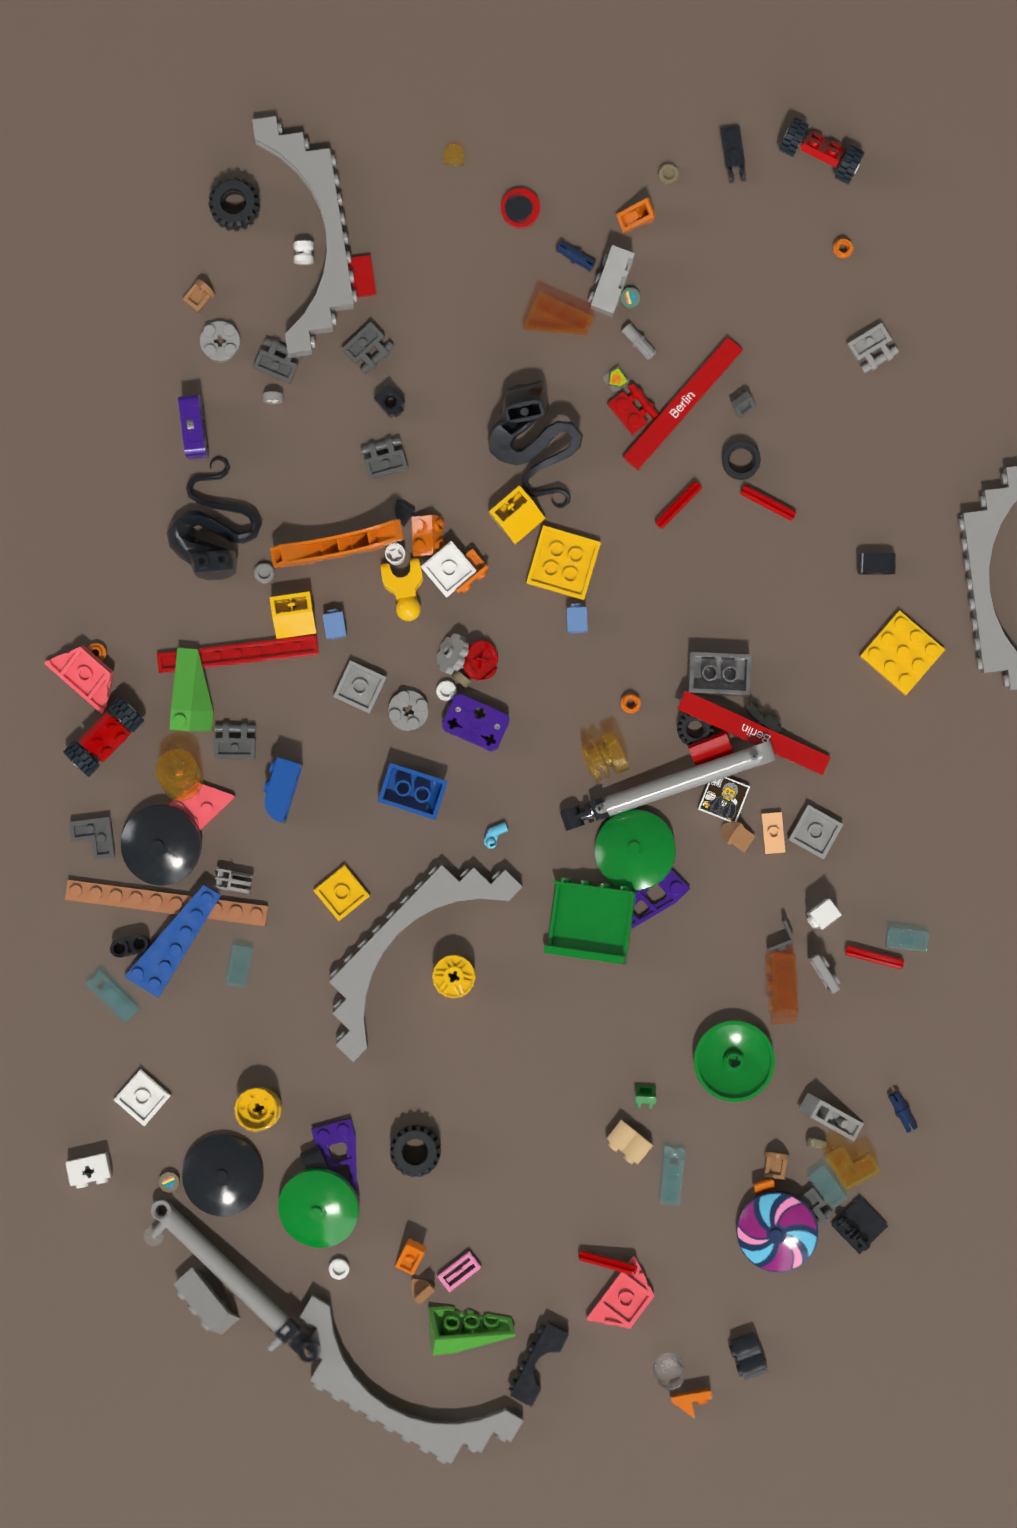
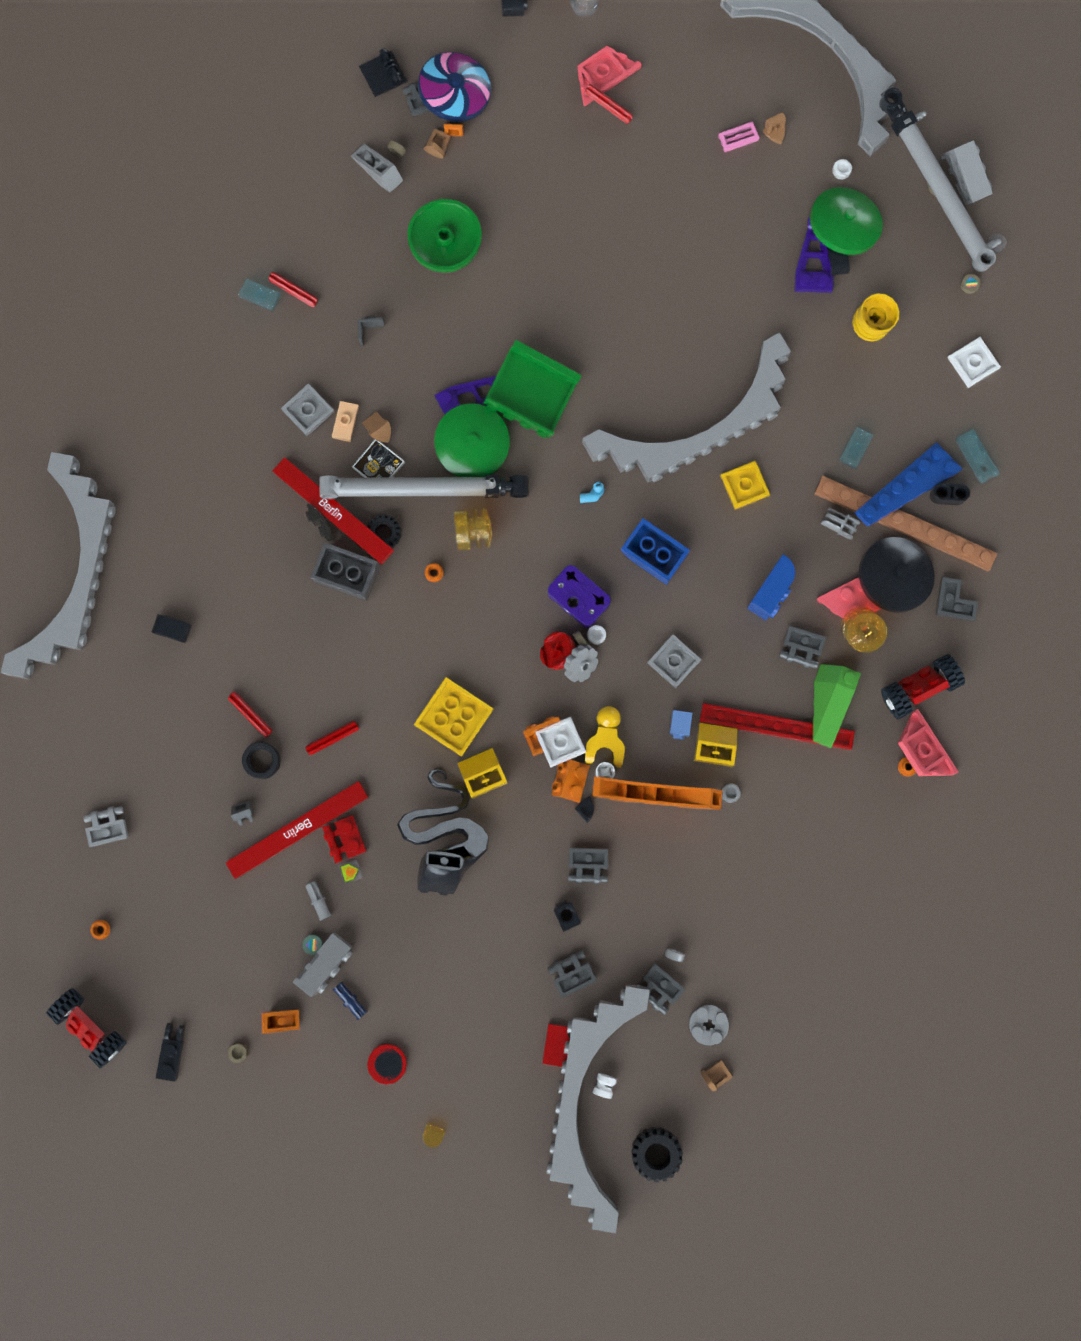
camera: 155 degrees left, 5 degrees down
(98, 1162) = (1039, 313): white brick -> none
(193, 427) = (758, 948): dark purple axle -> none
(207, 559) = (782, 821): black hips -> none
(222, 1175) = (921, 275): black dish -> none
(398, 716) = (636, 616): light grey plate -> none
(411, 1256) = (775, 160): orange slope -> none
(423, 1167) = (749, 229): black tyre -> none
(458, 987) = (668, 389): yellow wheel -> none
(460, 1330) = (752, 87): bright green wedge -> none
(550, 1340) = (679, 55): black arch -> none
(557, 317) = (385, 946): clear orange wedge -> none
(576, 619) = (458, 661): medium blue brick -> none
(629, 1142) = (557, 197): tan brick -> none
(645, 1094) = (531, 232): green tile -> none
(672, 1177) = (530, 158): clear light blue plate -> none
(710, 748) = (375, 507): red tile -> none
(782, 988) = (381, 284): clear orange wedge -> none
(820, 966) = (340, 284): light grey plate -> none
(823, 914) = (325, 334): white brick -> none
(827, 1187) = (399, 111): clear light blue plate -> none
(850, 1172) = (373, 115): clear yellow brick -> none
(902, 653) = (177, 543): yellow plate -> none
(902, 1111) = (313, 154): dark blue pin -> none

